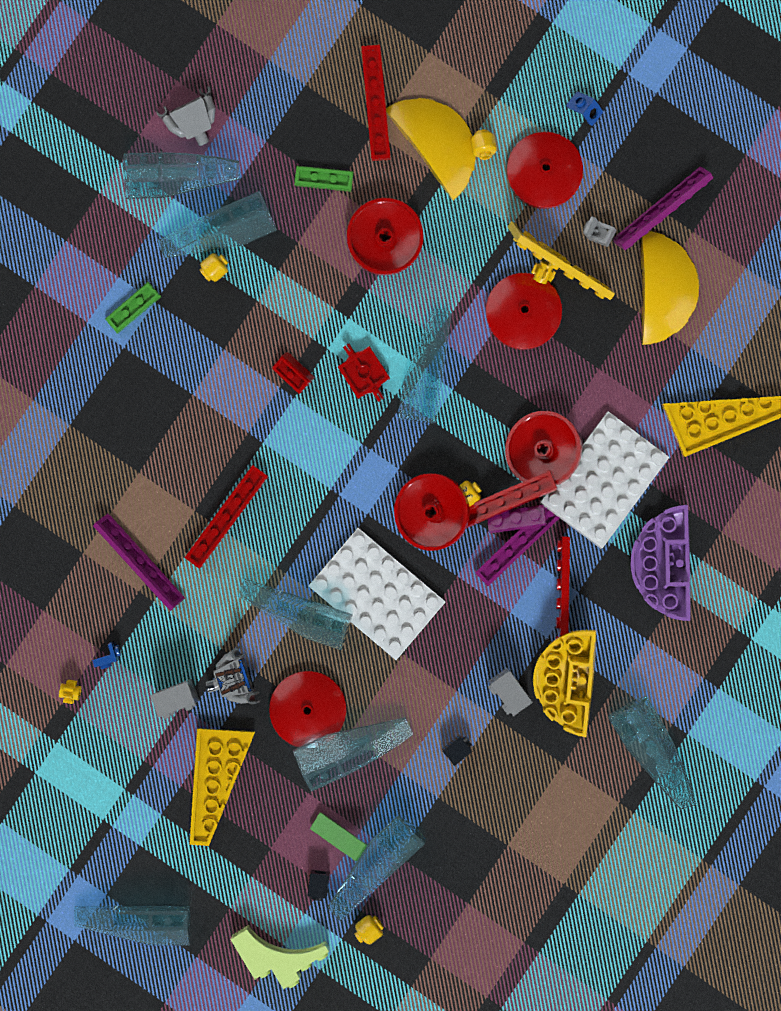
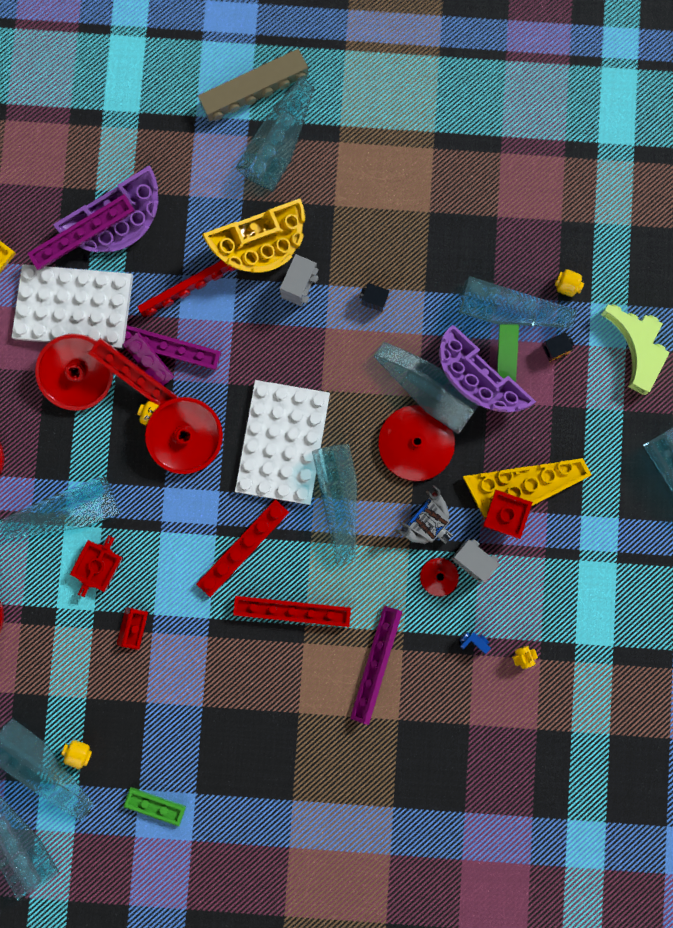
camera: 120 degrees left, 5 degrees down
(191, 659) = (429, 577): none -> red dish
(198, 750) = (507, 514): none -> red plate
(305, 506) = (242, 548): none -> red plate
(330, 795) = (476, 378): none -> medium lavender brick
(664, 526) = (81, 232): none -> magenta plate
(715, 757) = (253, 85): none -> dark tan brick

